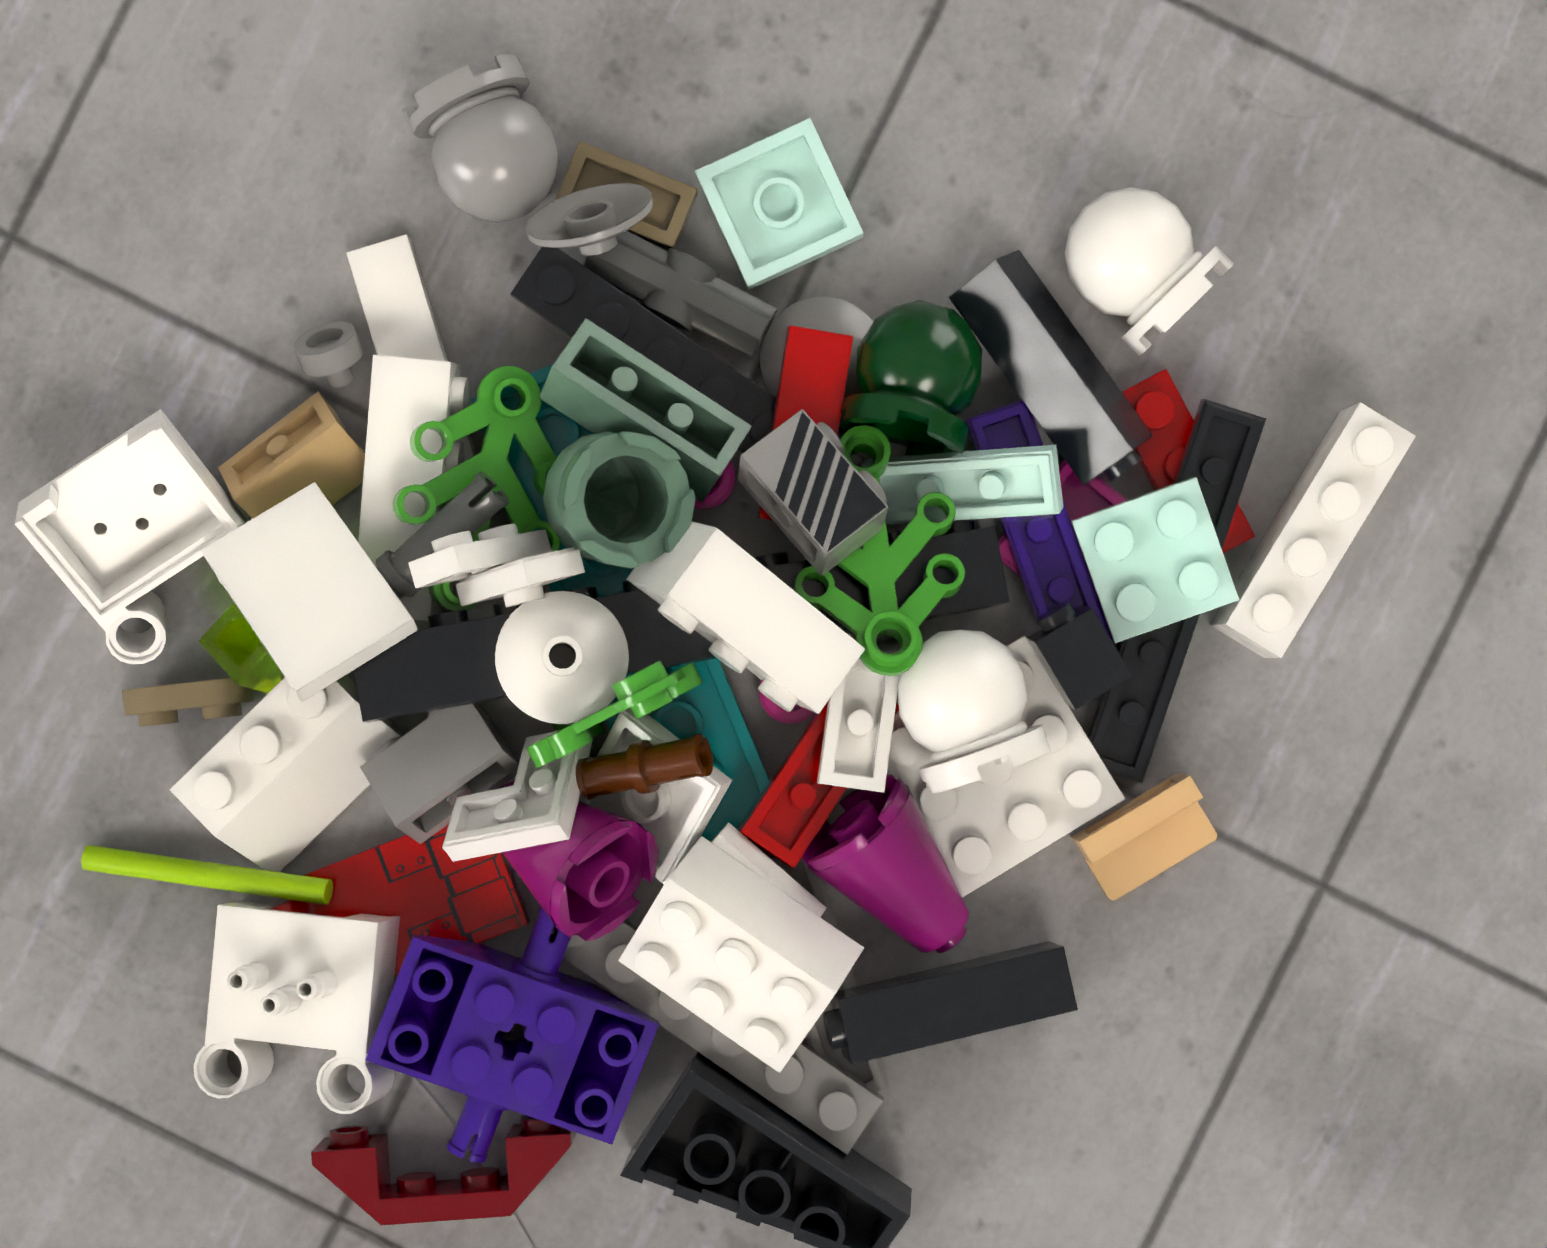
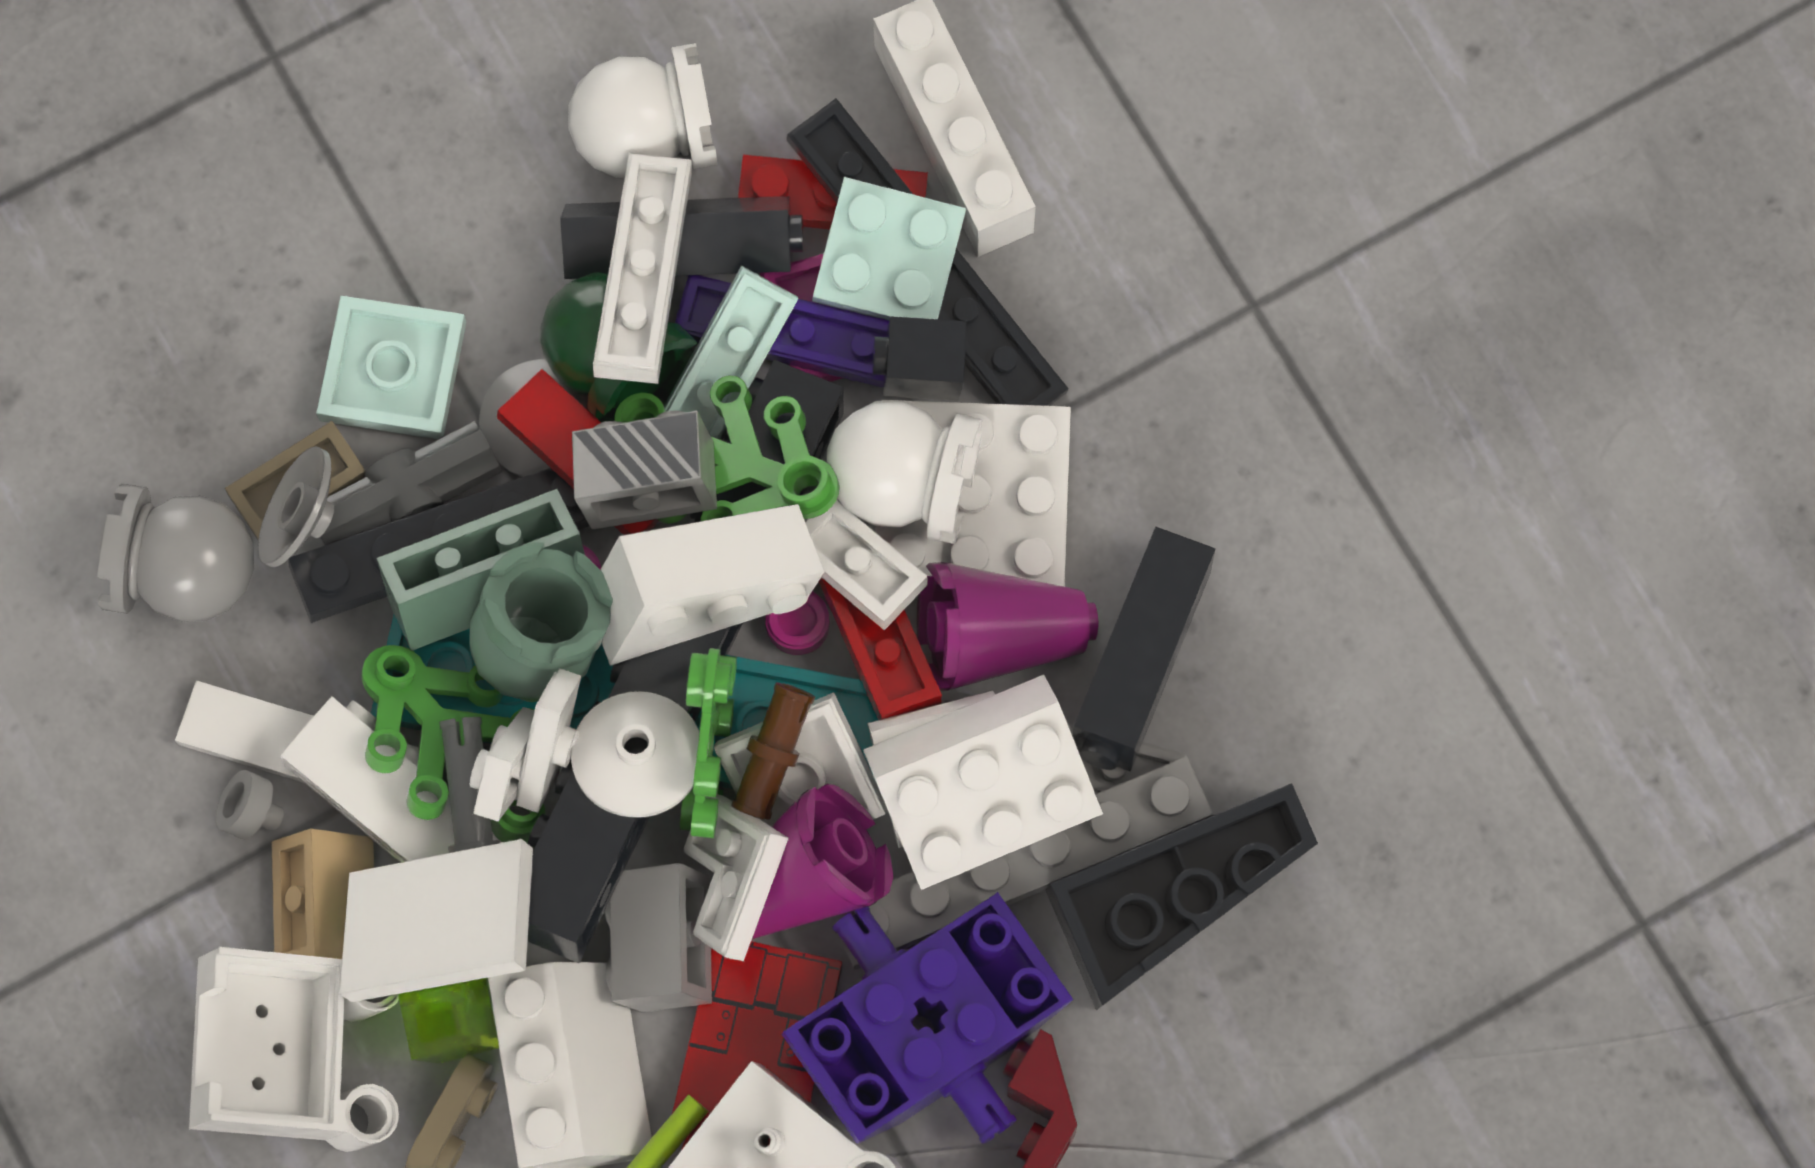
camera: 60 degrees left, 15 degrees down
(991, 366) = (642, 268): none -> white tile
(1145, 836) = (1115, 415): tan panel -> none

